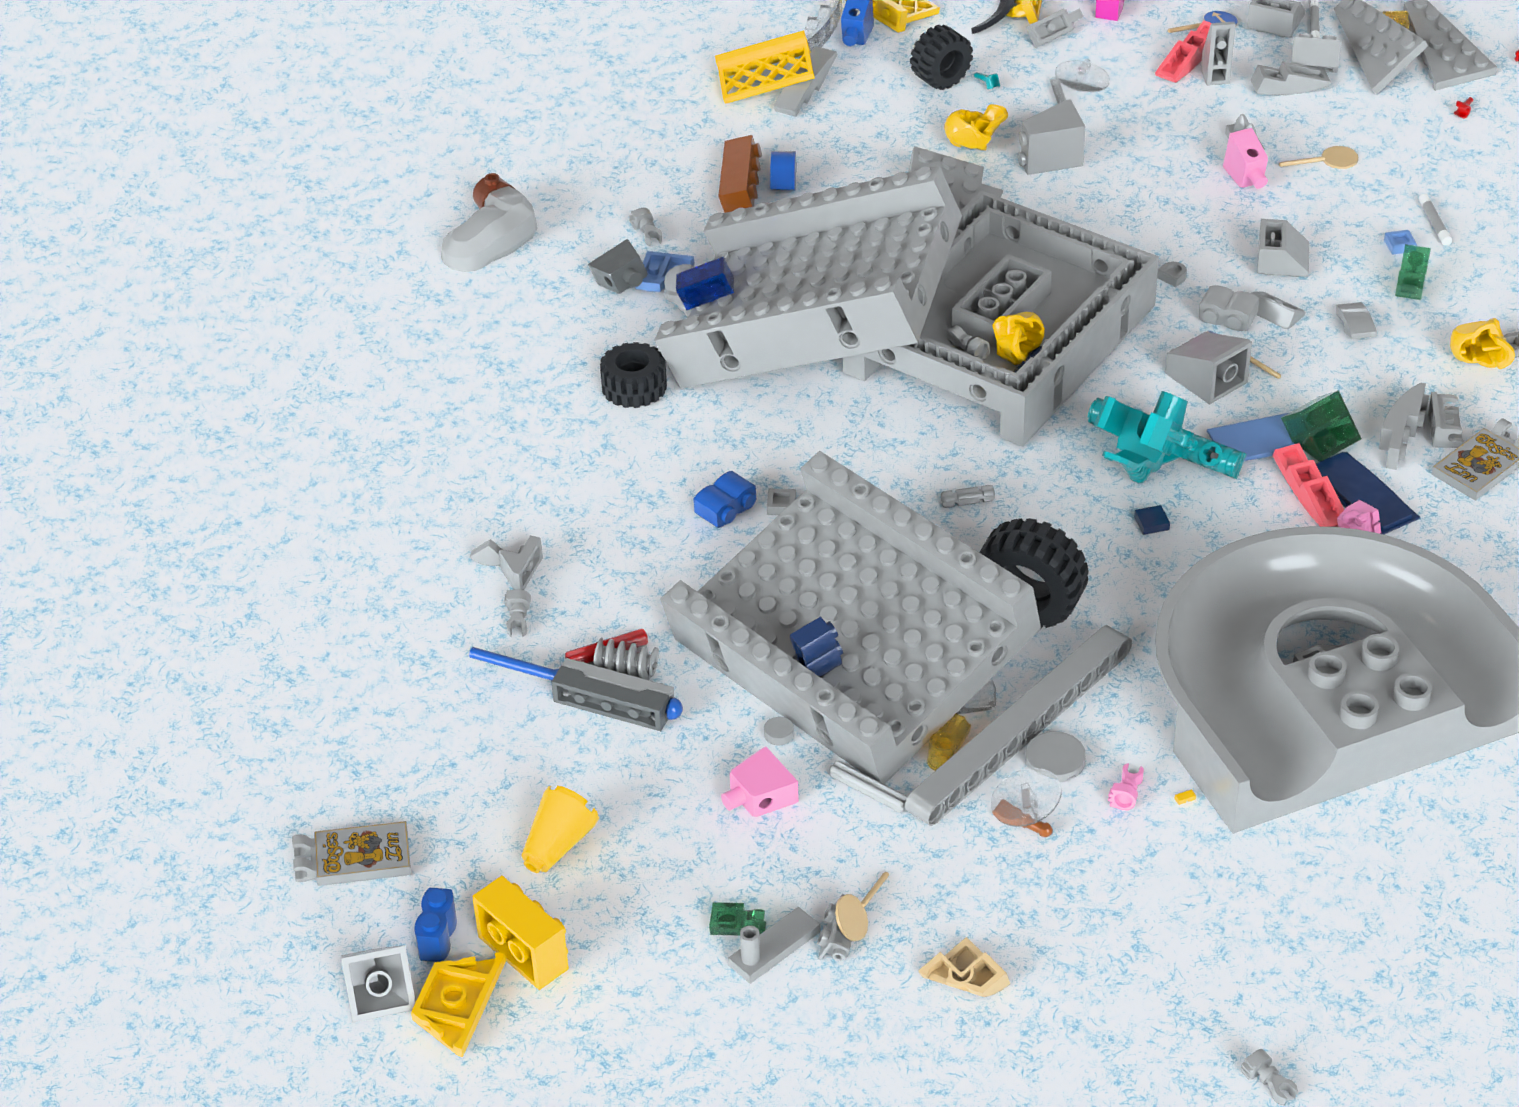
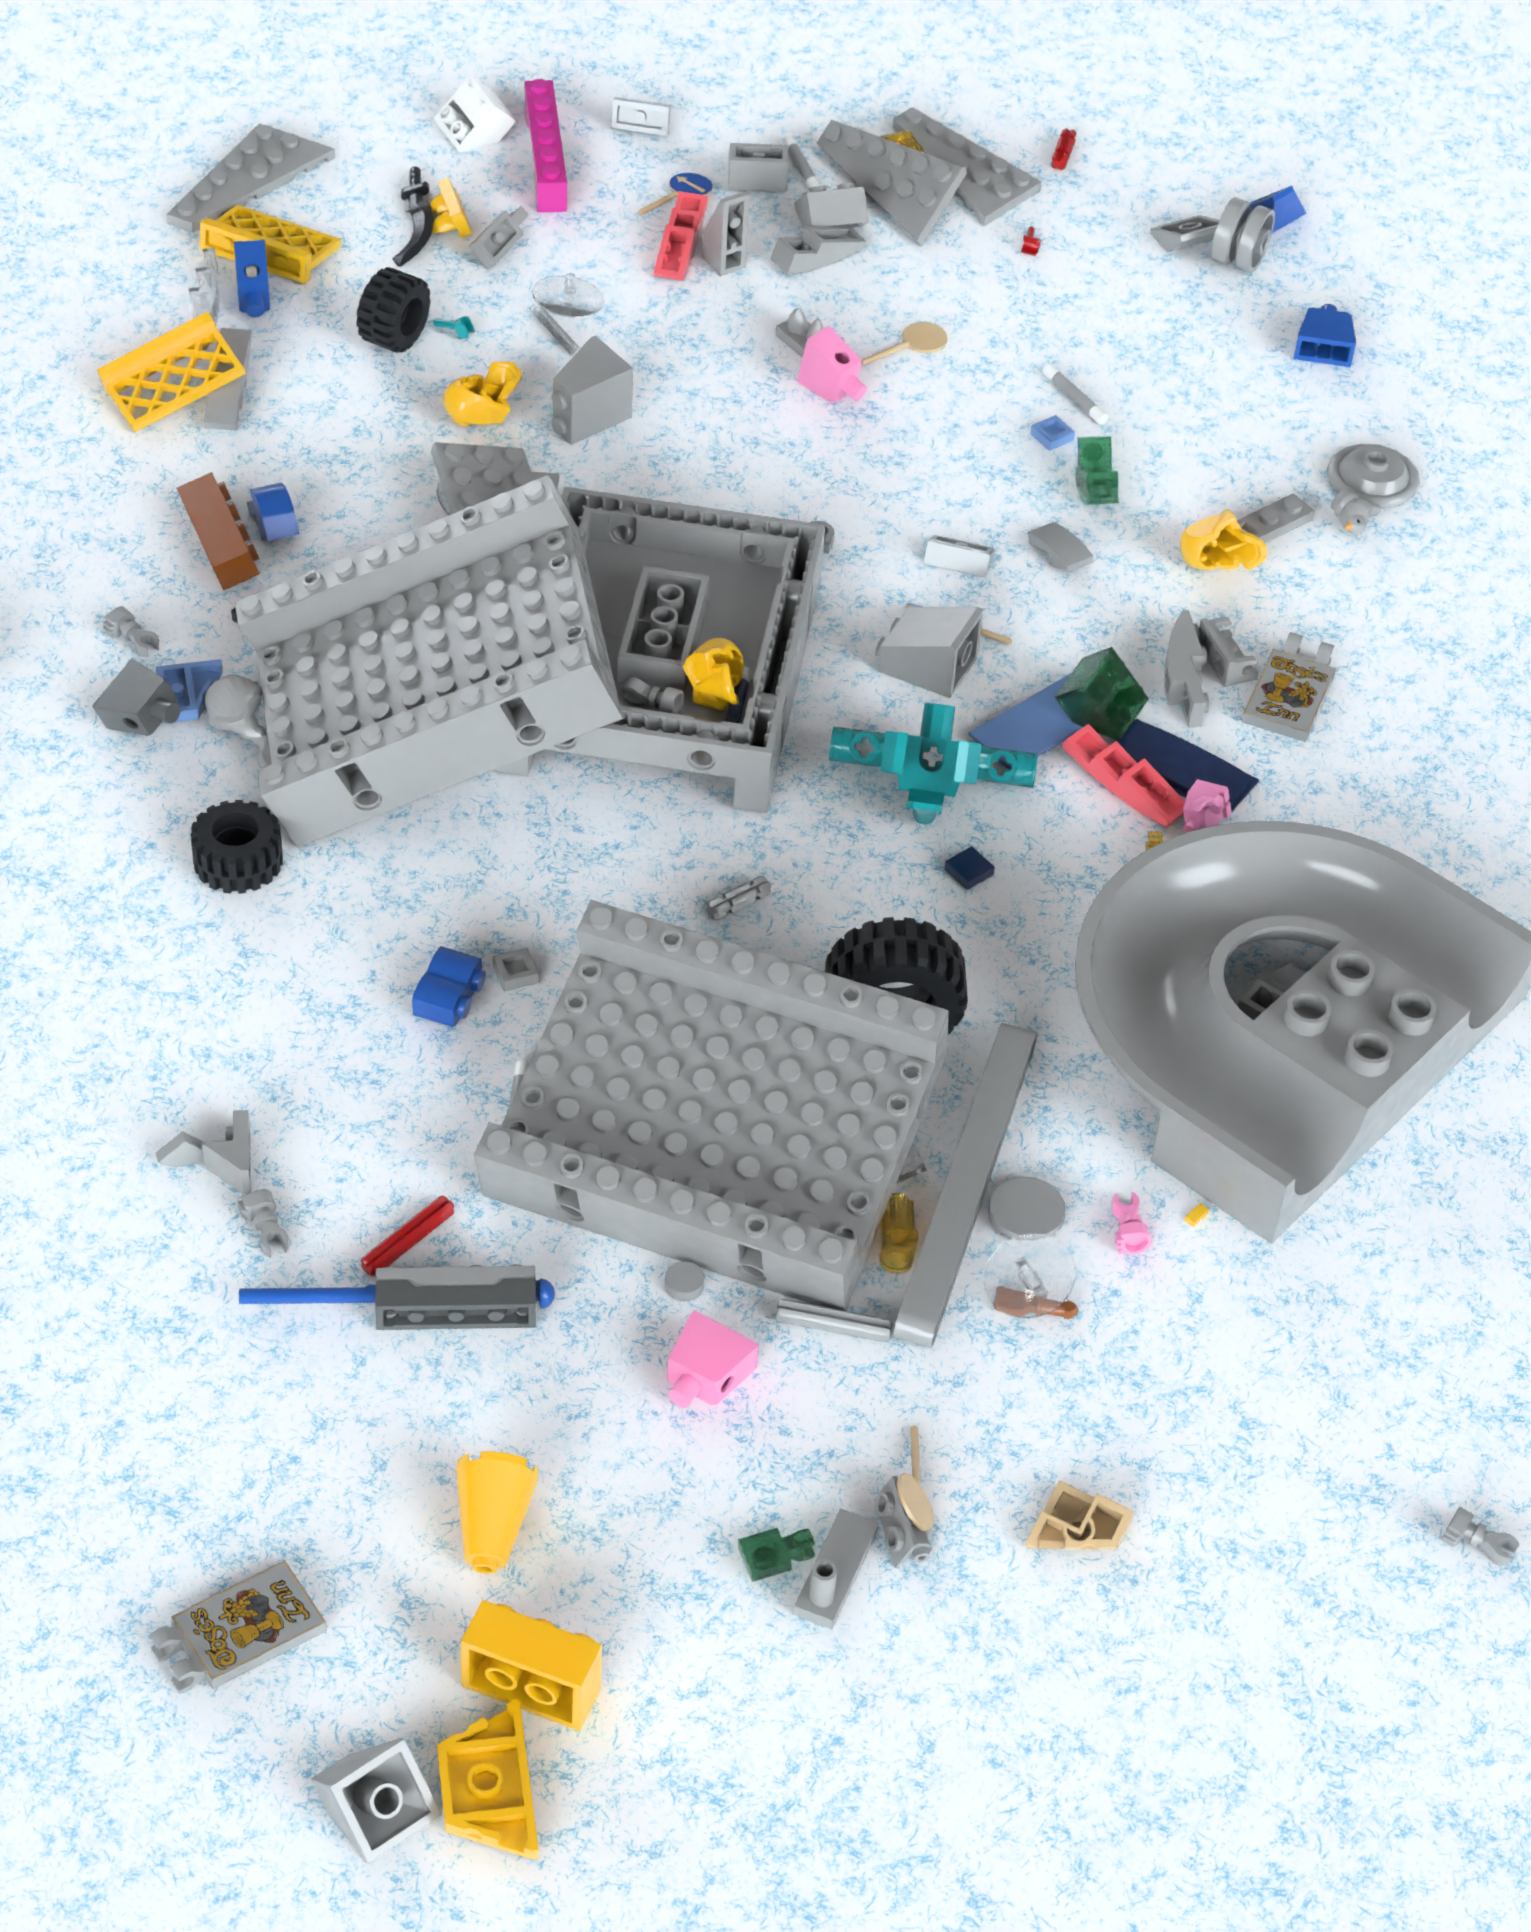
camera: 30 degrees left, 5 degrees up
(435, 924) = (409, 1691): blue brick -> none
(626, 661) = (450, 1245): light grey piece -> none
(704, 283) = (279, 698): clear blue brick -> none
(817, 646) = (714, 1162): dark blue brick -> none
(1228, 308) = (911, 567): light grey brick -> none
(1282, 249) = (930, 476): light grey slope -> none

